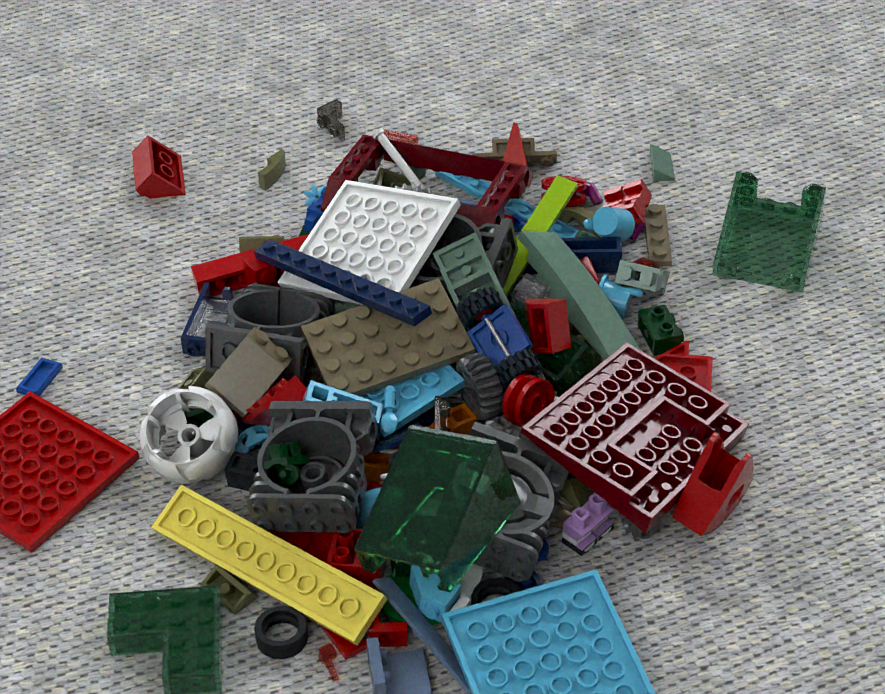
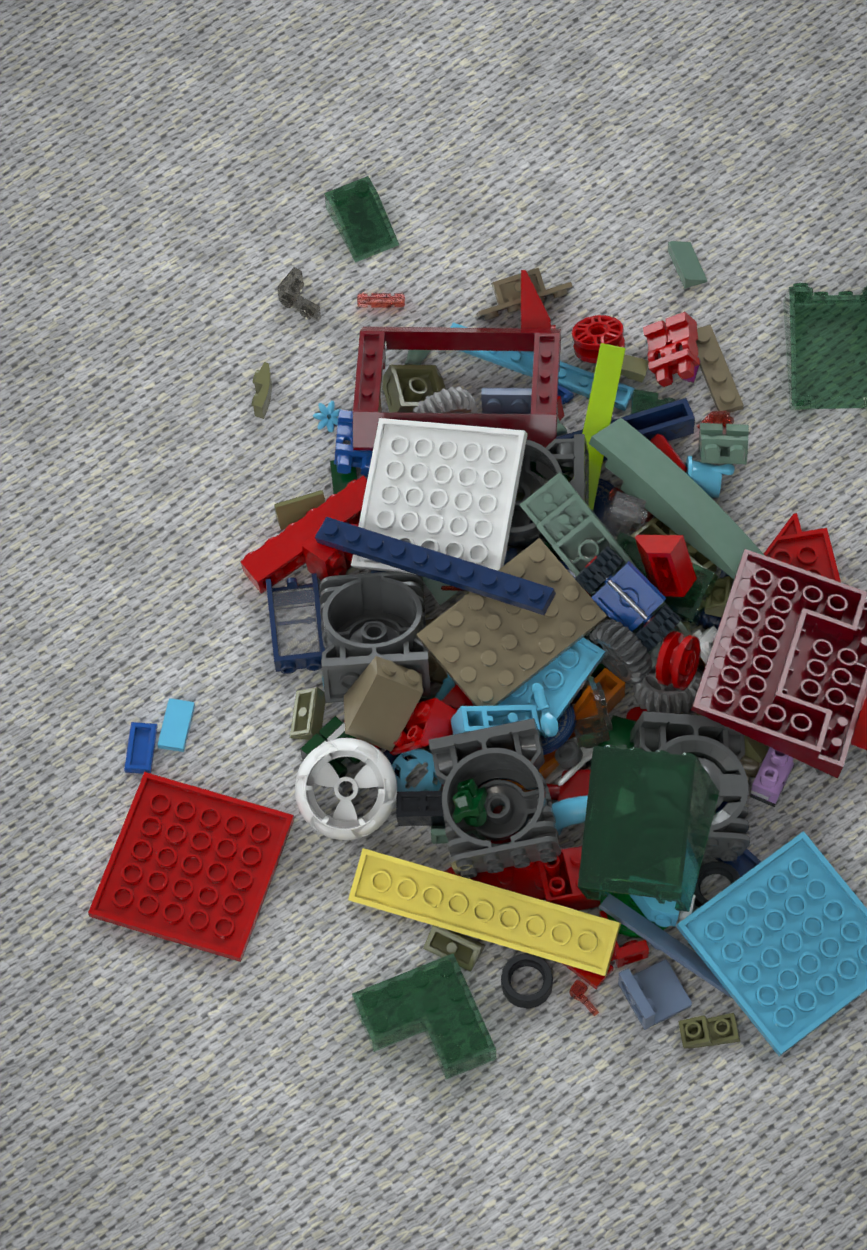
camera: 15 degrees left, 20 degrees up
(77, 369) = (176, 725): none -> medium azure tile
(157, 170) = (132, 426): red slope -> none
(380, 136) = (414, 357): white bar -> none
(406, 85) = (360, 219): none -> clear green slope
(592, 192) = (629, 330): magenta arm -> none
(612, 223) = (672, 381): medium azure hat -> none
(659, 329) = (762, 506): dark green brick -> none

